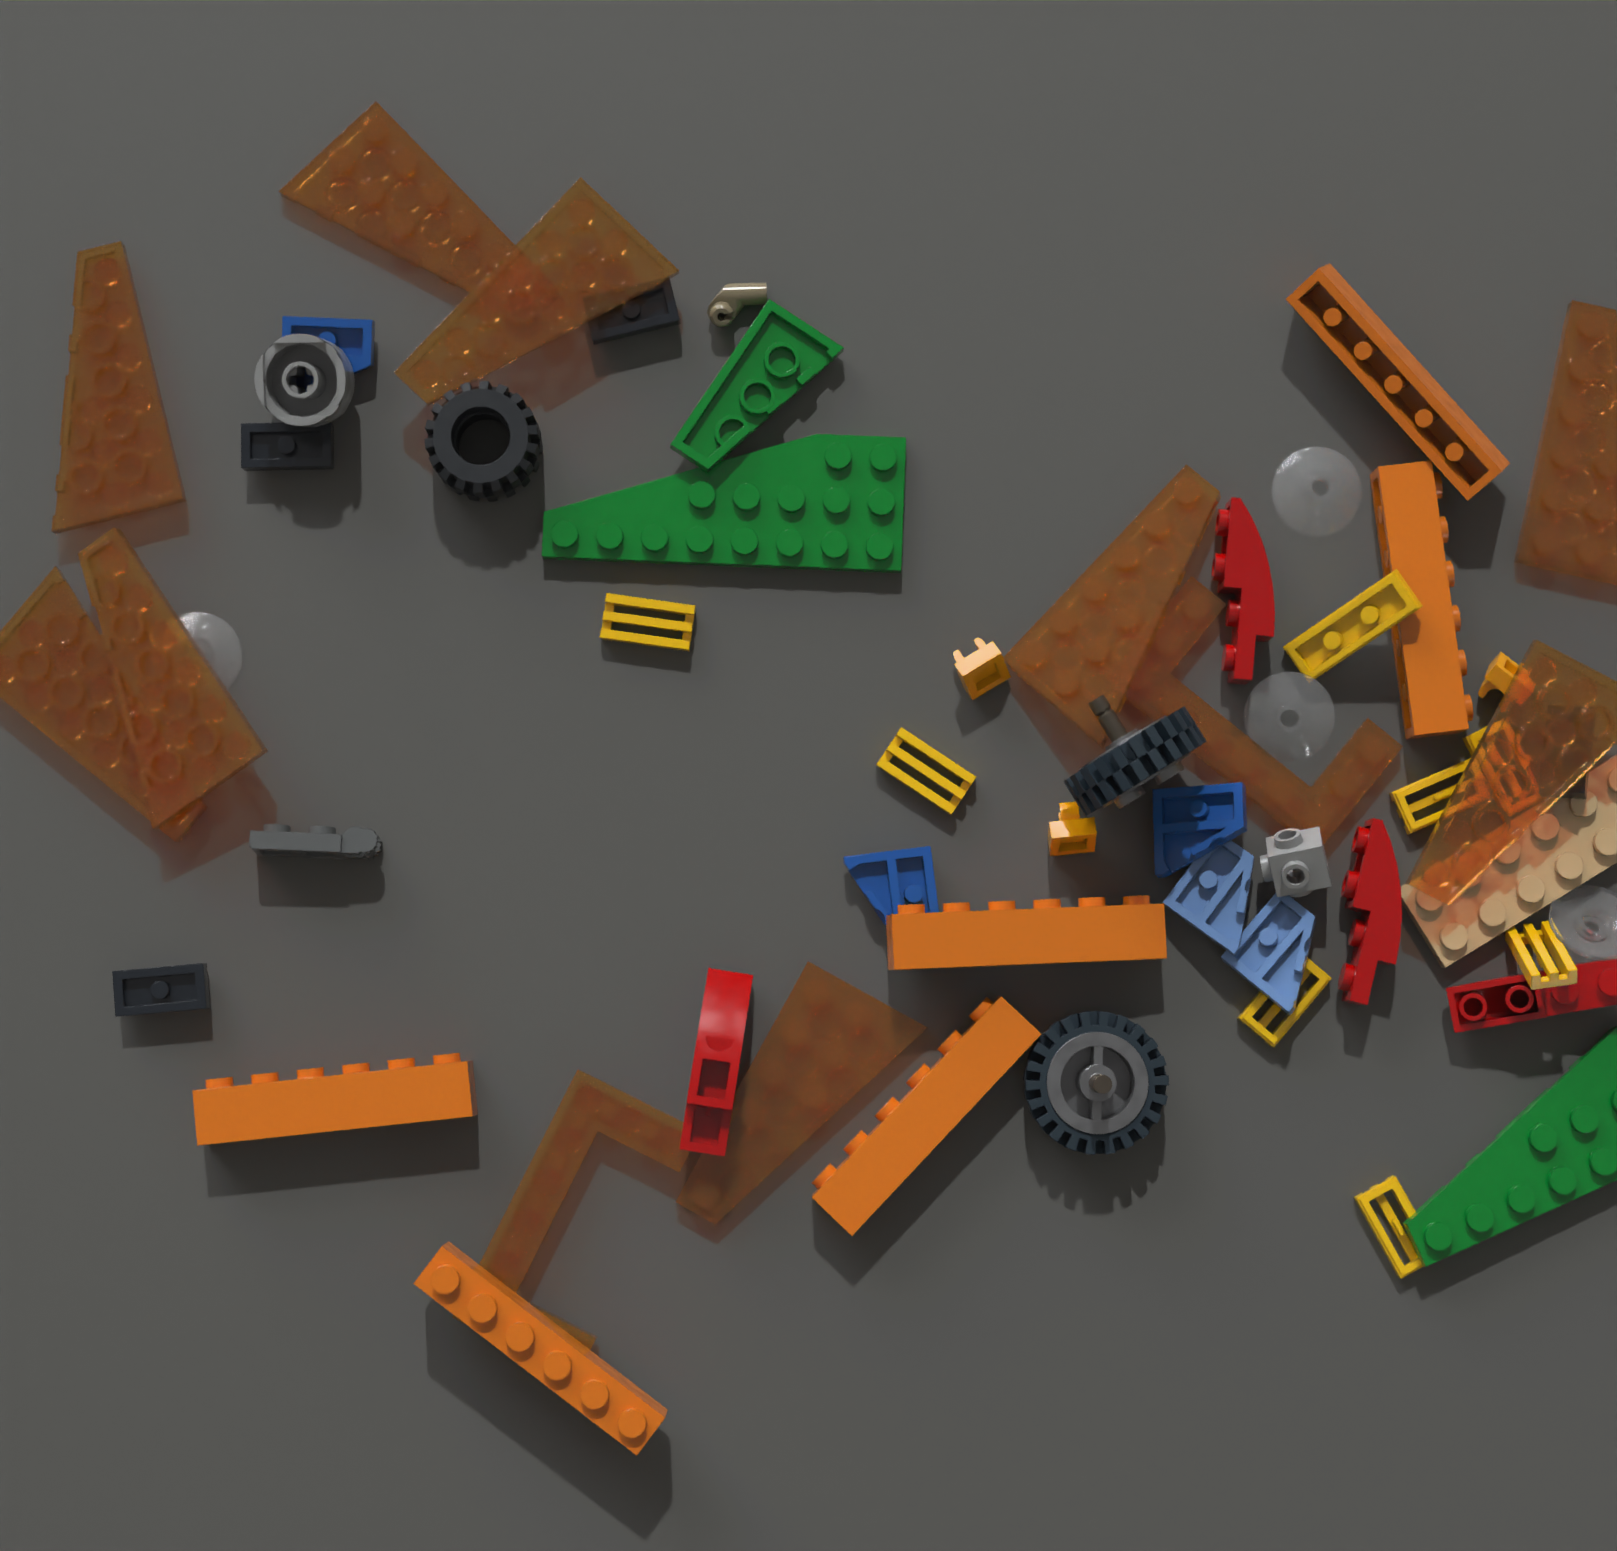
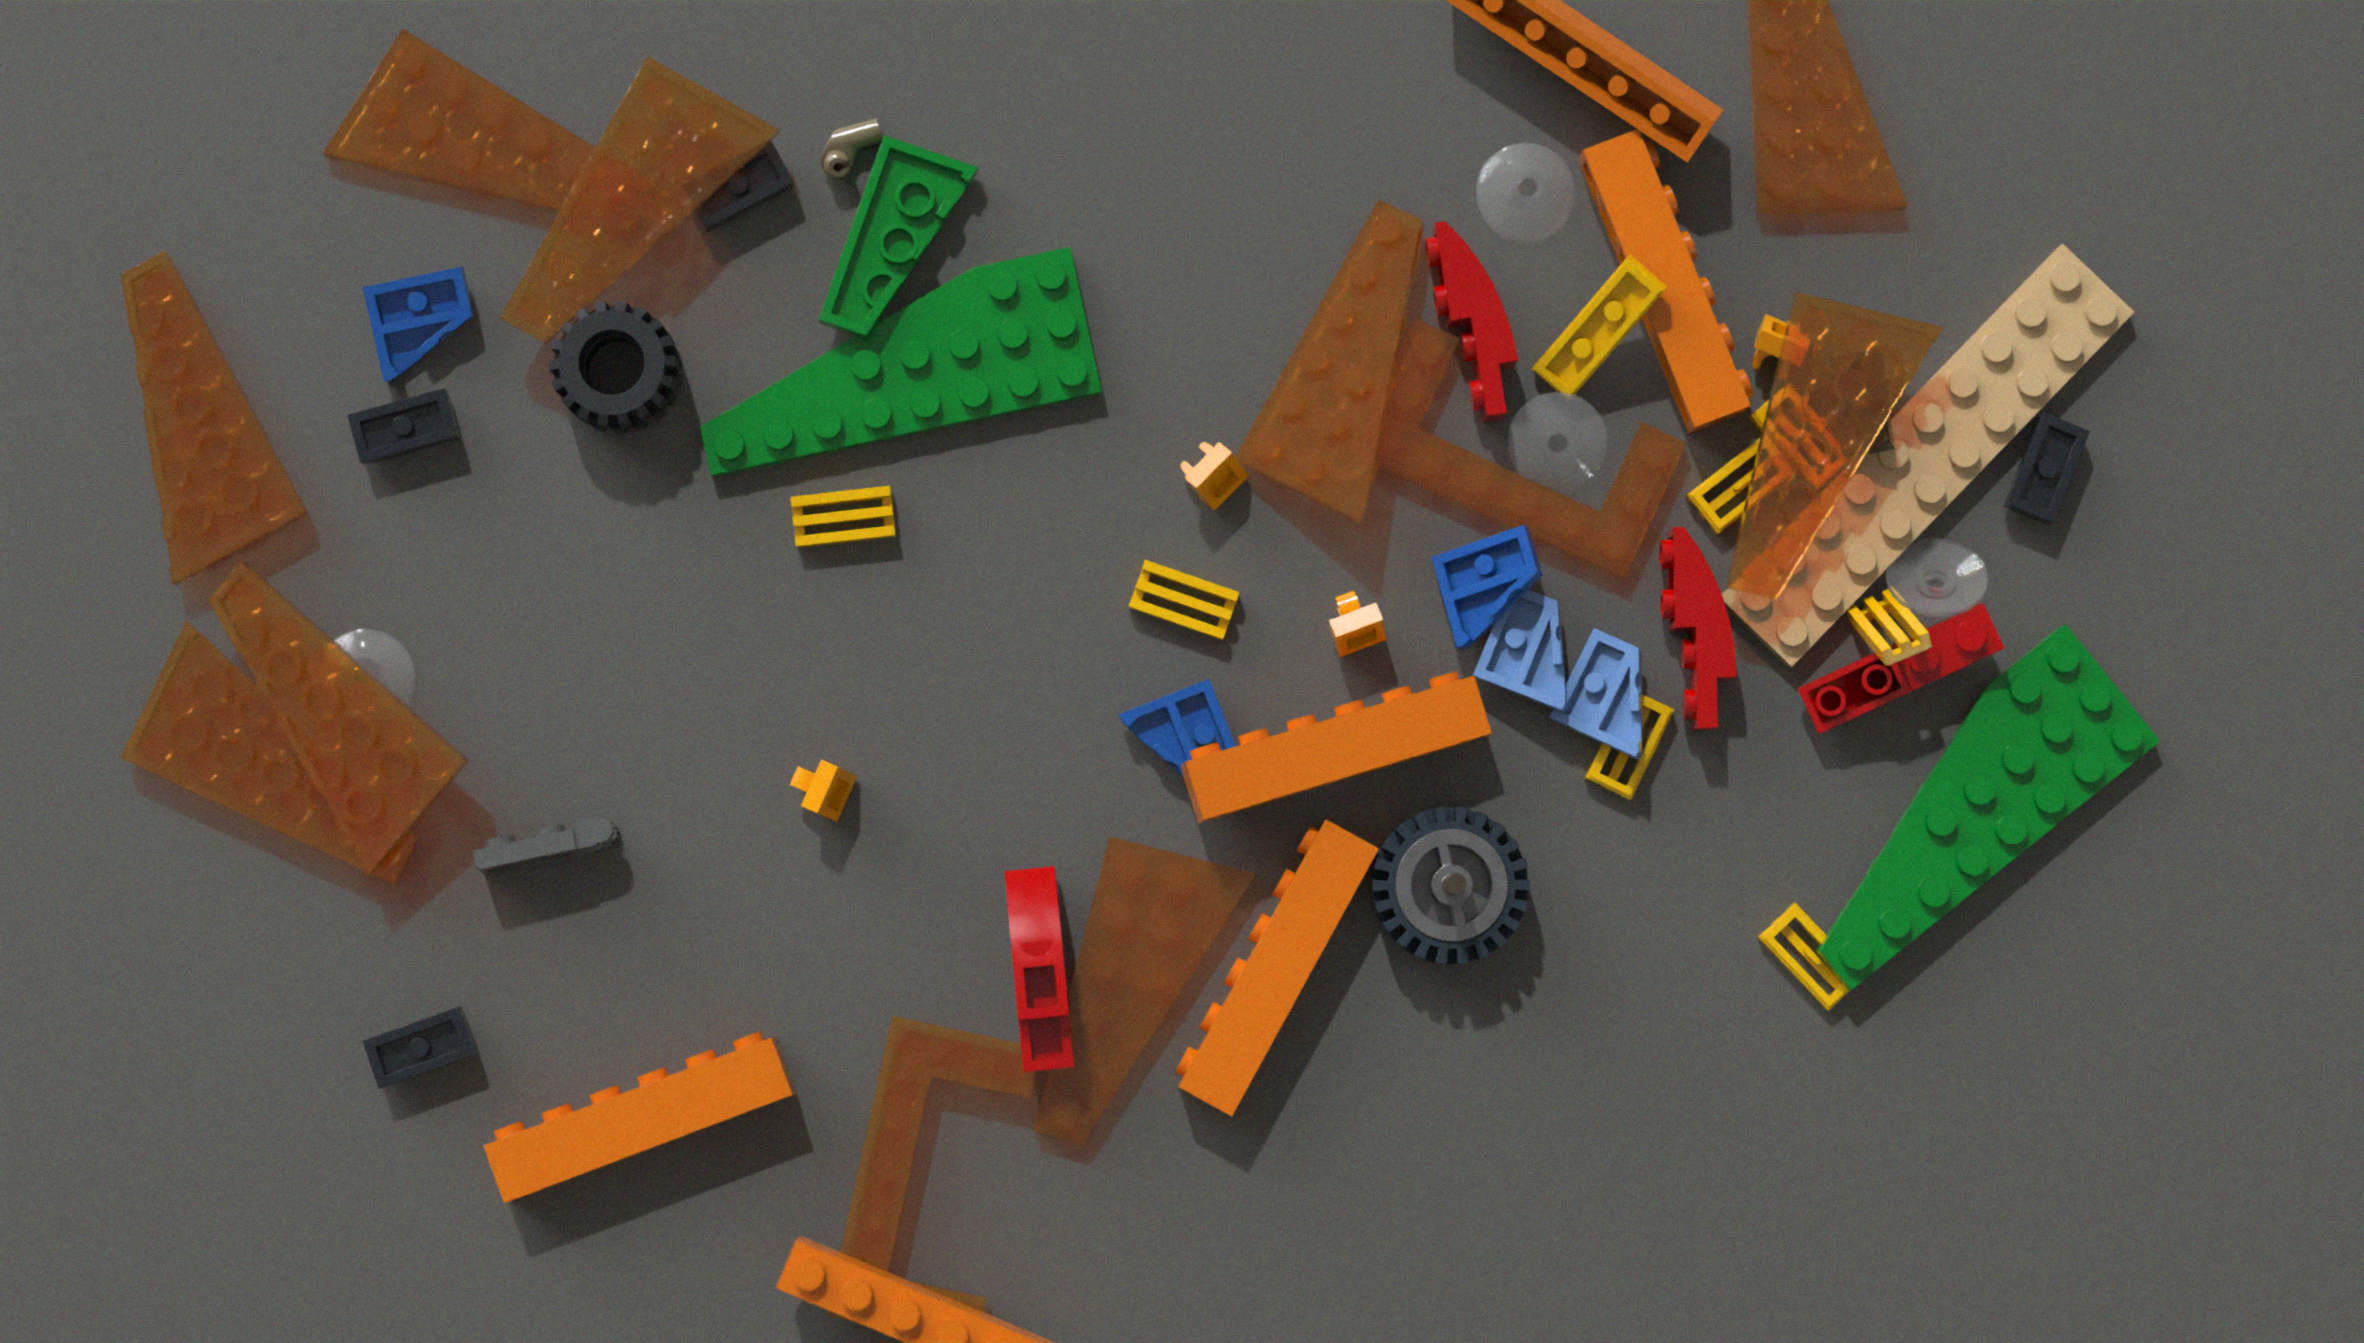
camera: 20 degrees left, 0 degrees up
(286, 361) = (381, 335): light grey brick -> none
(571, 855) = (825, 789): none -> light orange tile
(1132, 758) = (1400, 529): black wheel -> none
(1296, 862) = (1603, 595): light grey brick -> none

